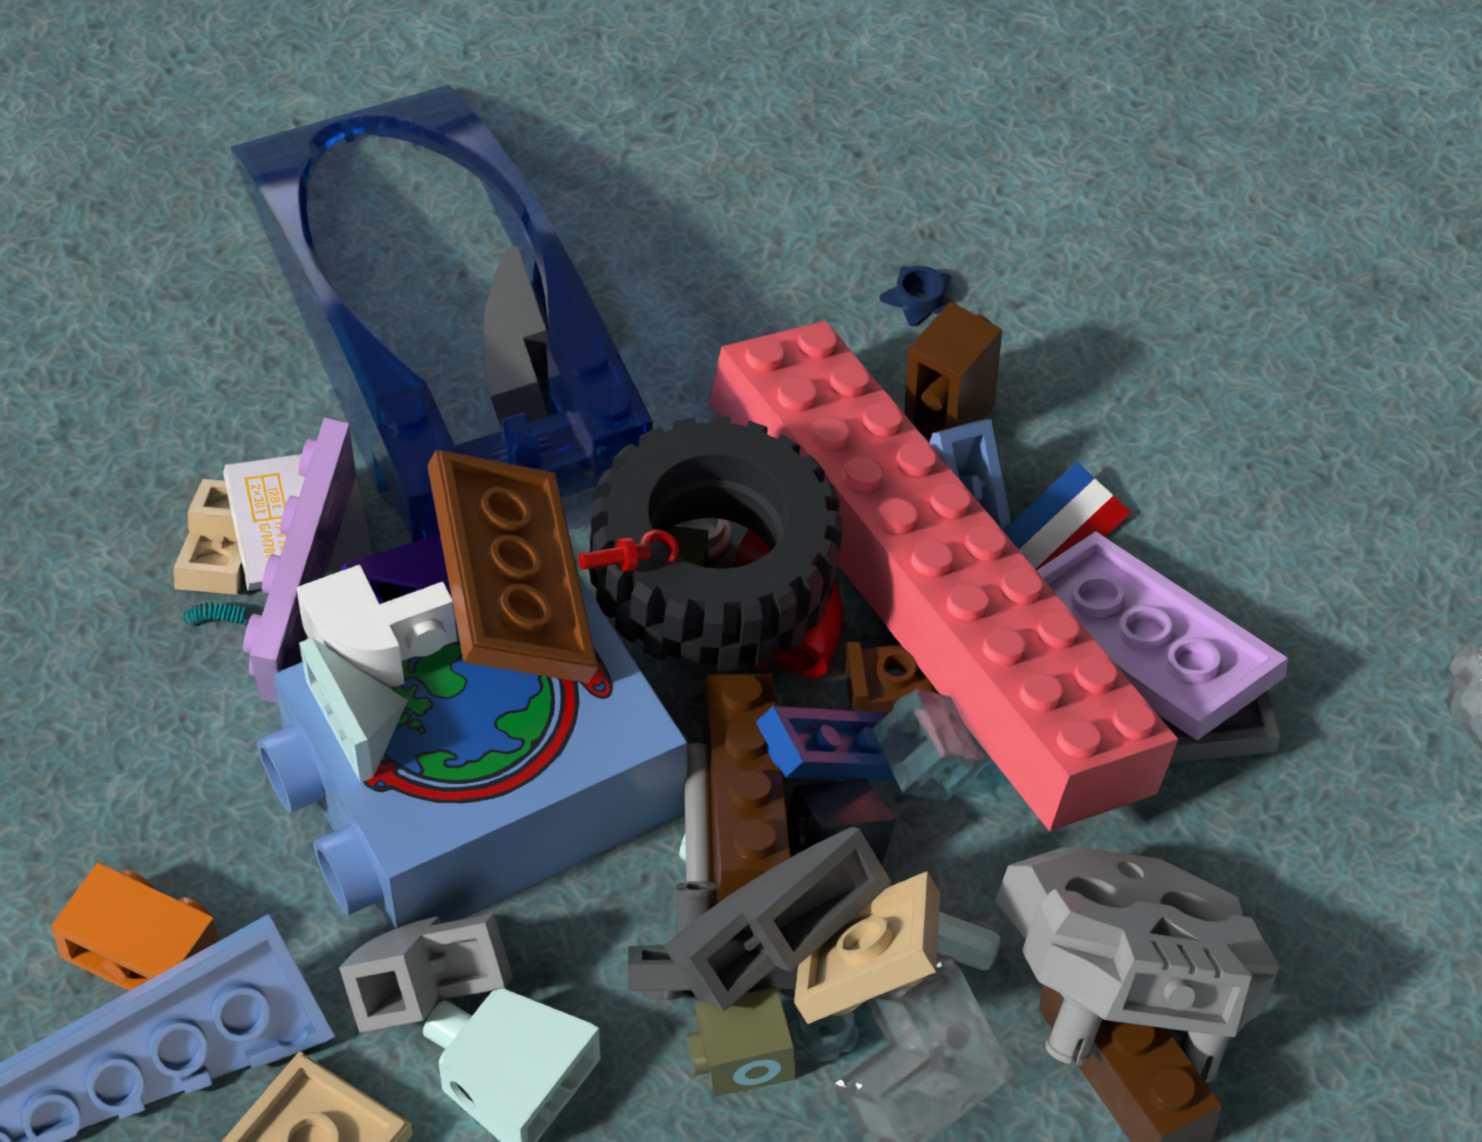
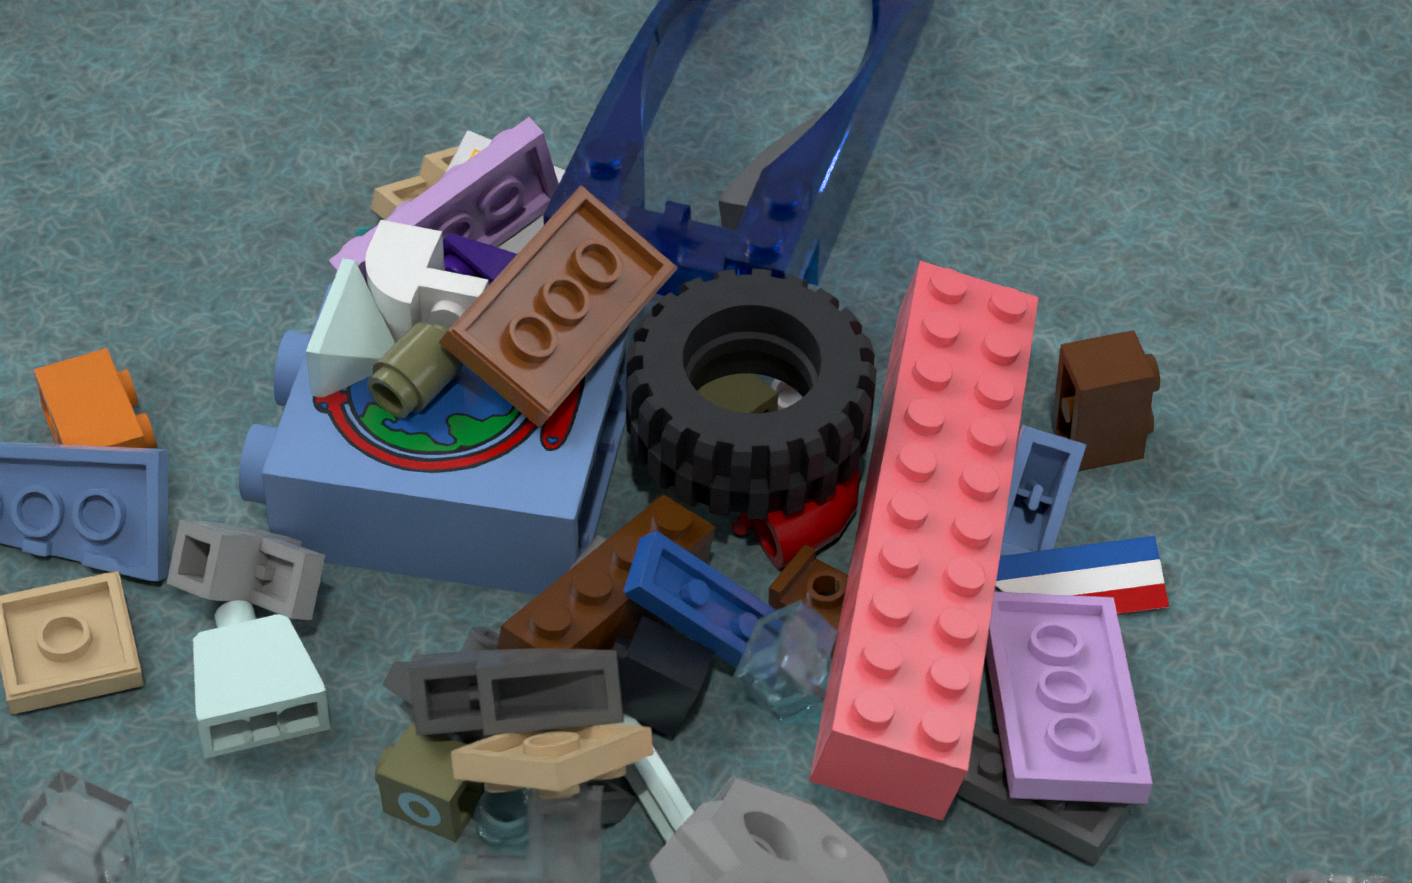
camera: 40 degrees right, 5 degrees down
(442, 701) = (413, 371): none -> olive brick
(628, 553) = (641, 342): red hand -> none
(916, 280) = (1174, 324): dark blue plate -> none

